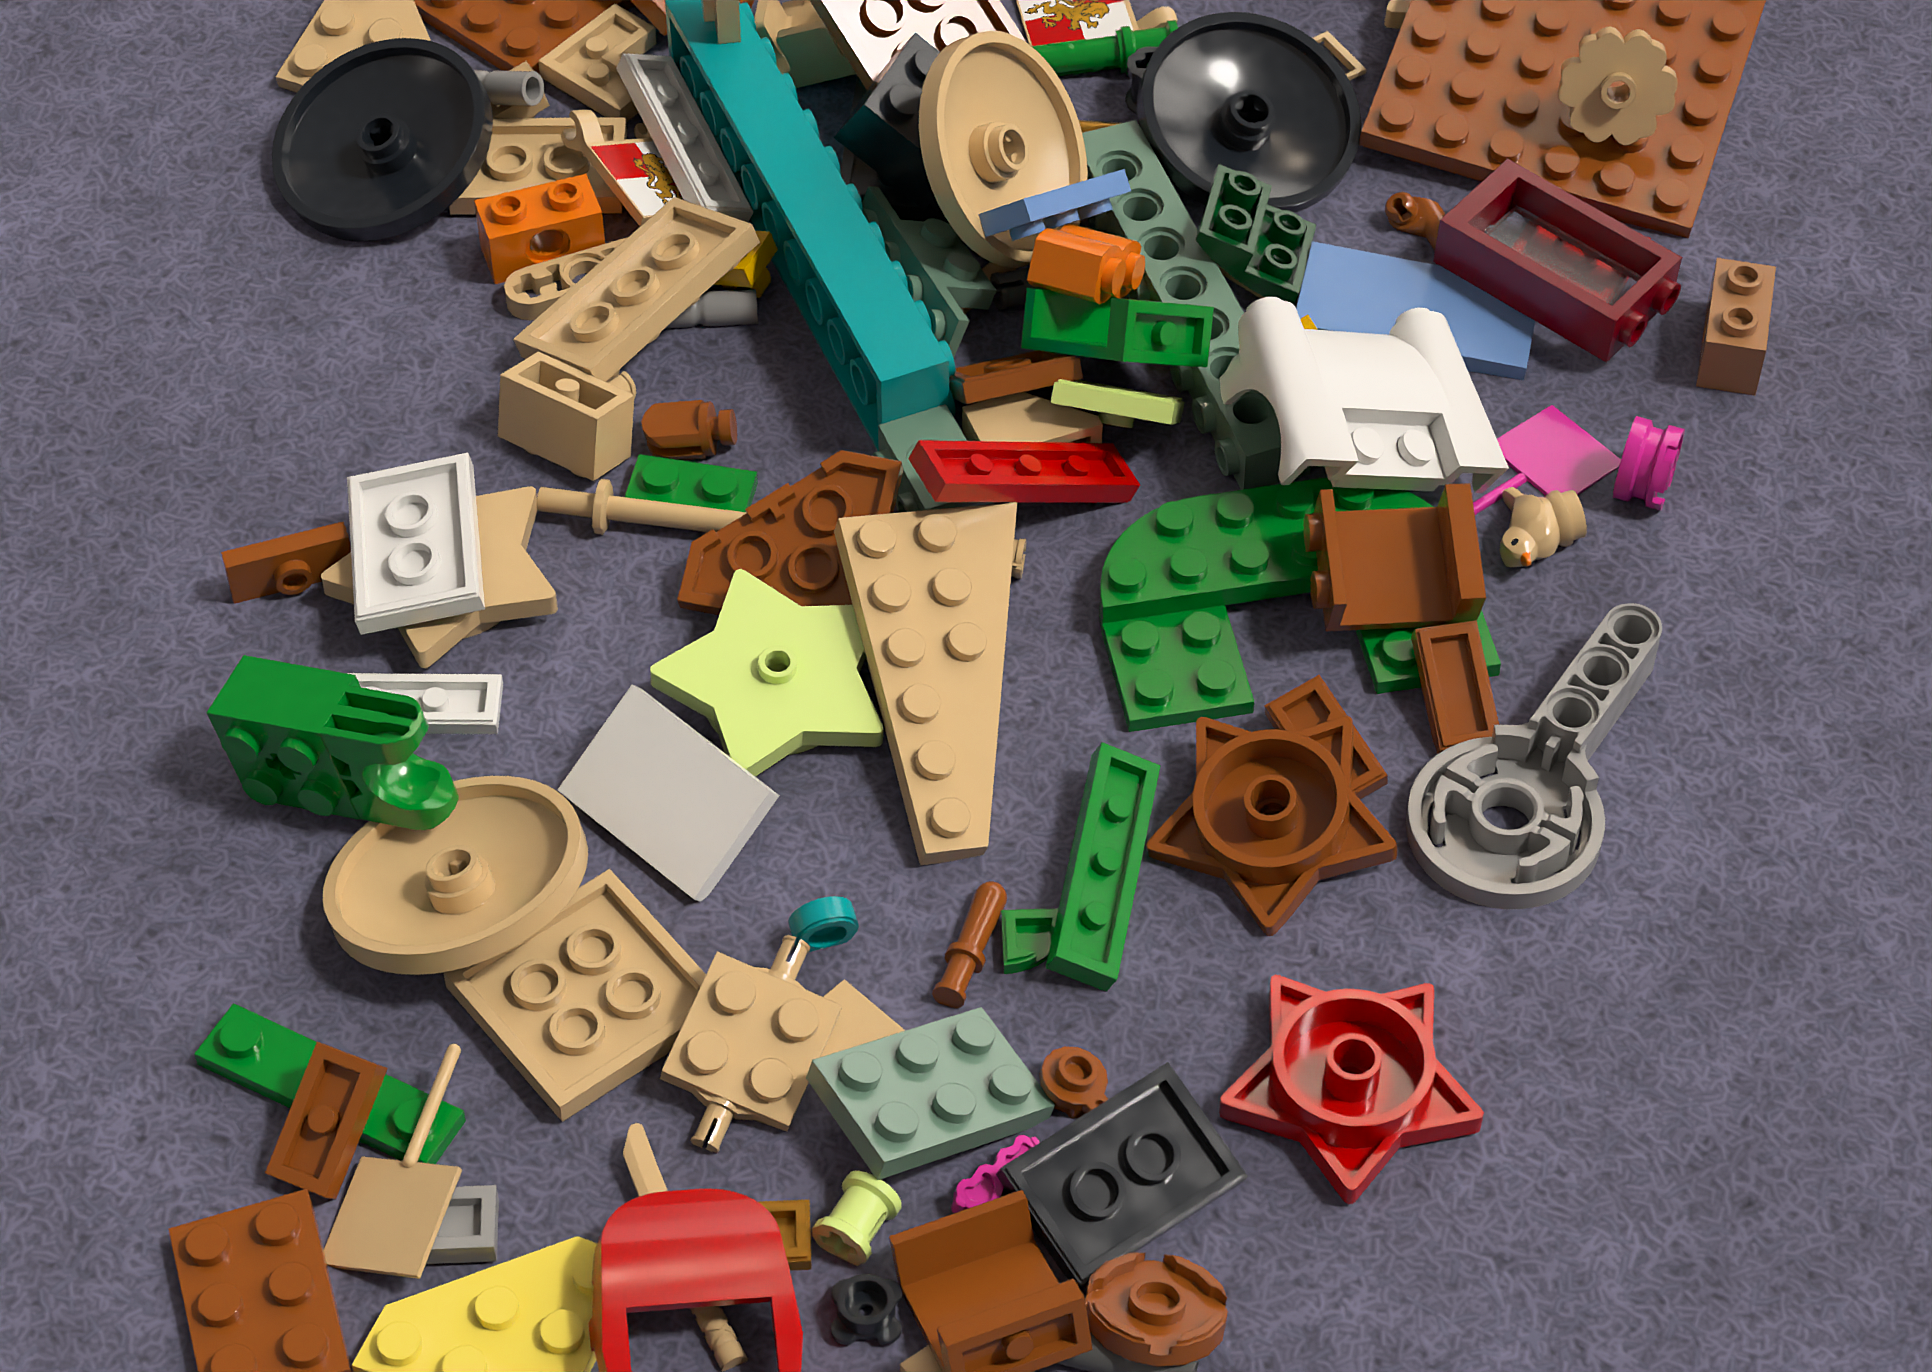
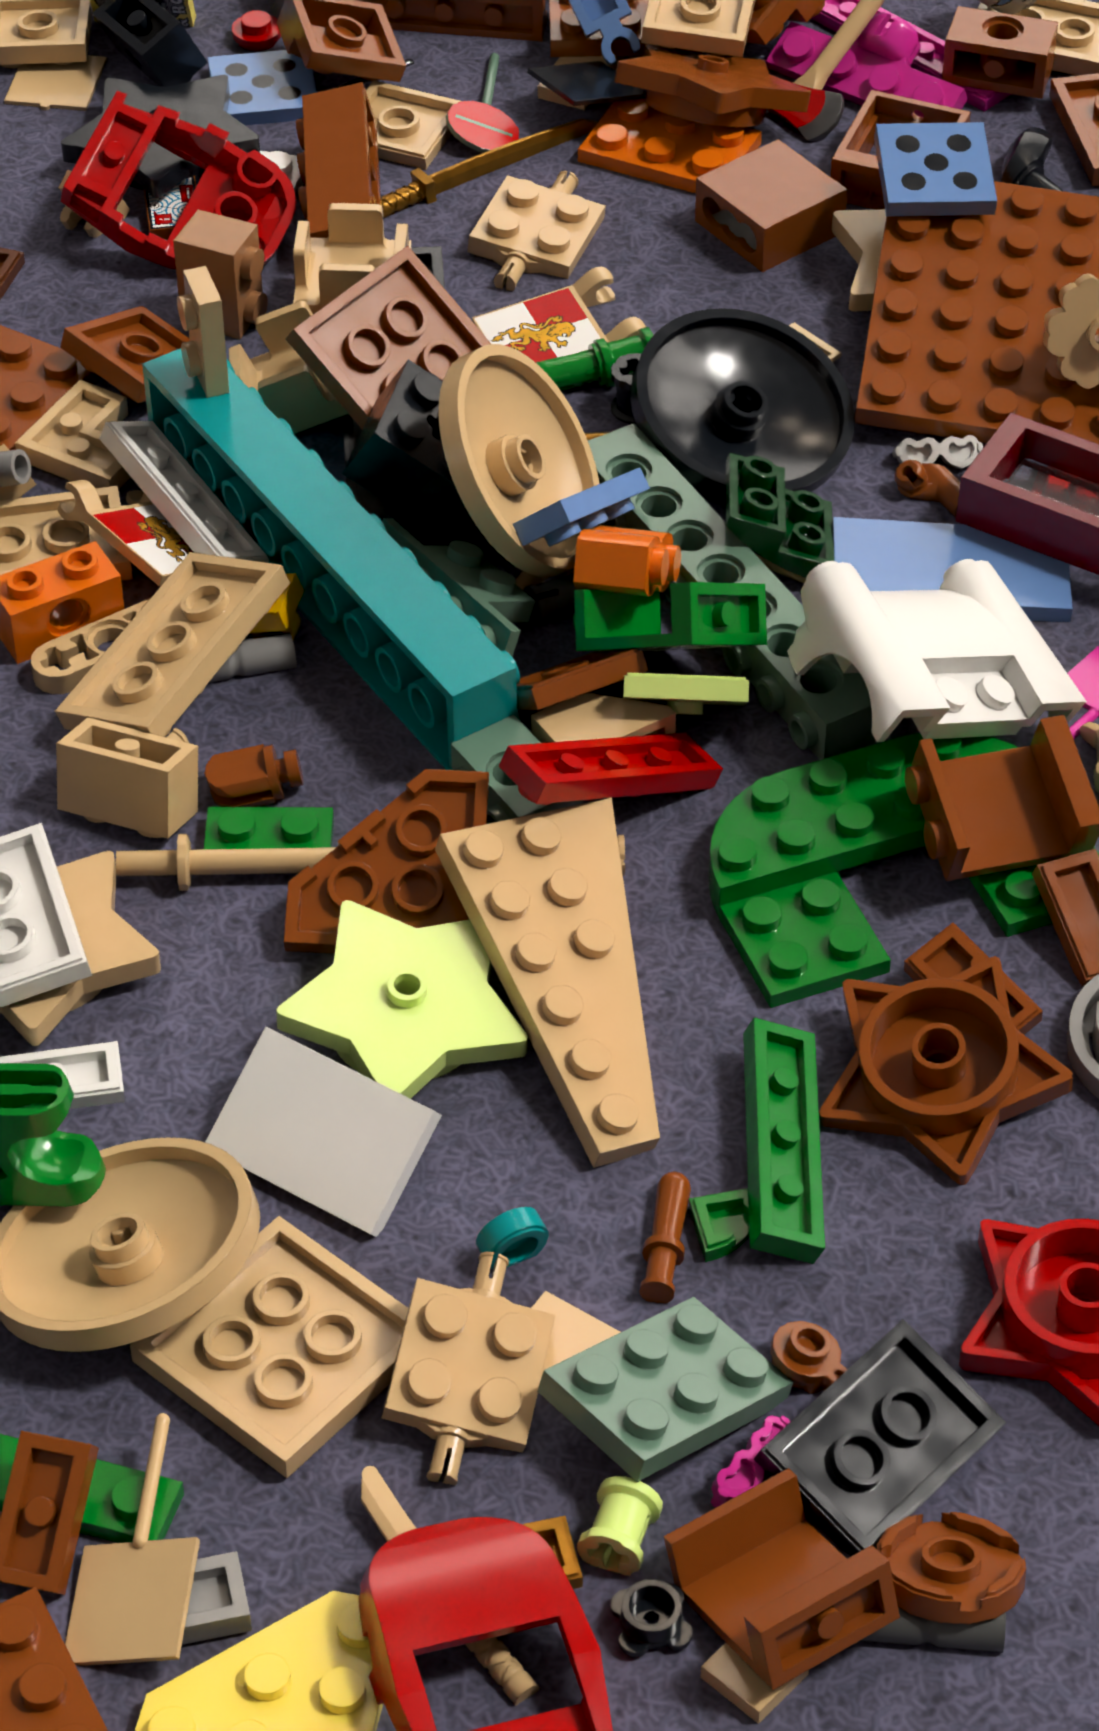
camera: 10 degrees left, 5 degrees down
(1422, 184) = (952, 450): none -> white piece

